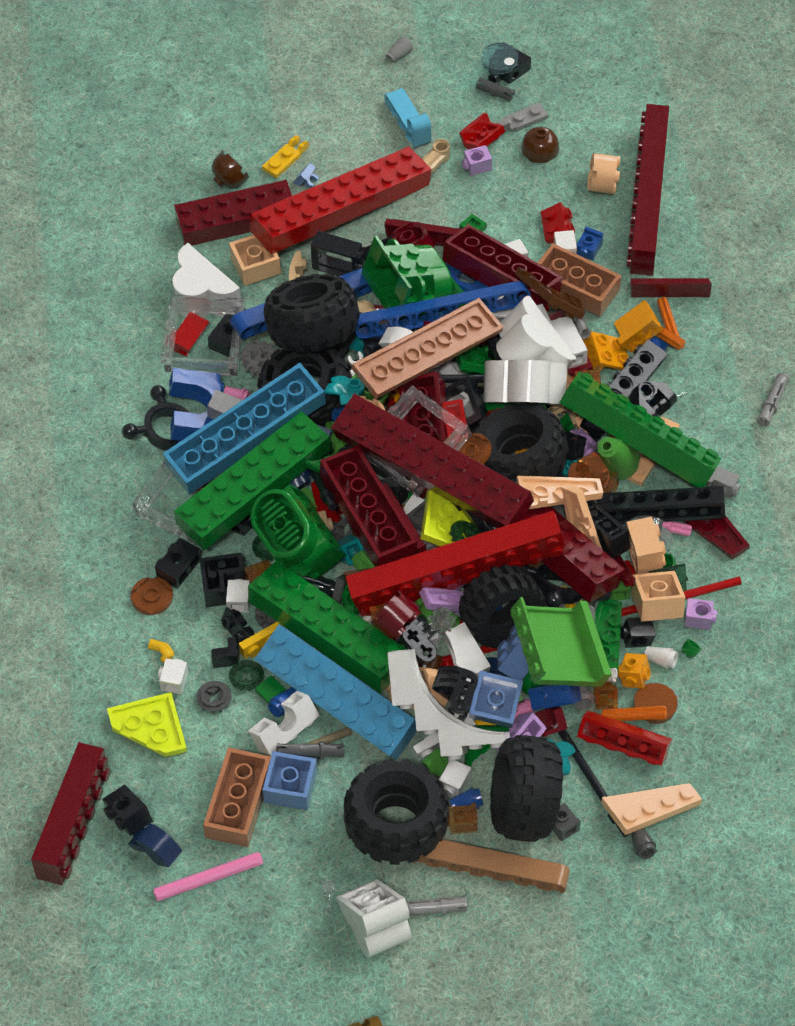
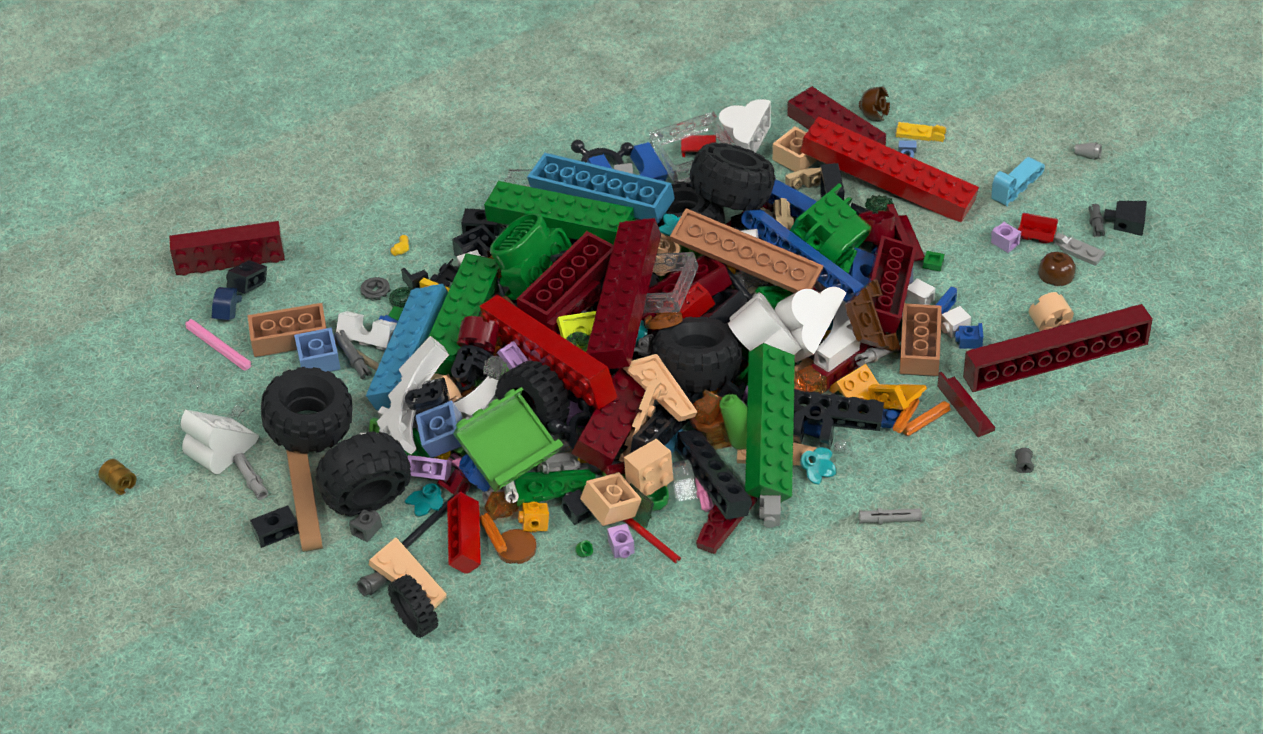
camera: 65 degrees right, 10 degrees down
(147, 600) = (446, 223): dark orange tile -> none
(150, 723) = (332, 264): neon yellow plate -> none
(173, 676) = (379, 258): white brick -> none
(359, 234) = (871, 203): none -> clear green gear
(438, 154) = (995, 212): tan piece -> none
(499, 58) = (1123, 203): clear light blue tile -> none
(521, 892) = (274, 526): none -> black brick
(535, 240) = (948, 300): none -> blue tile
(556, 219) = (982, 309): red bracket -> none
(661, 656) = (563, 534): white cone -> none
(686, 423) = (820, 466): none -> teal plate
(695, 823) = (413, 605): none -> black tyre
(761, 276) = (1024, 462): none -> dark grey bush

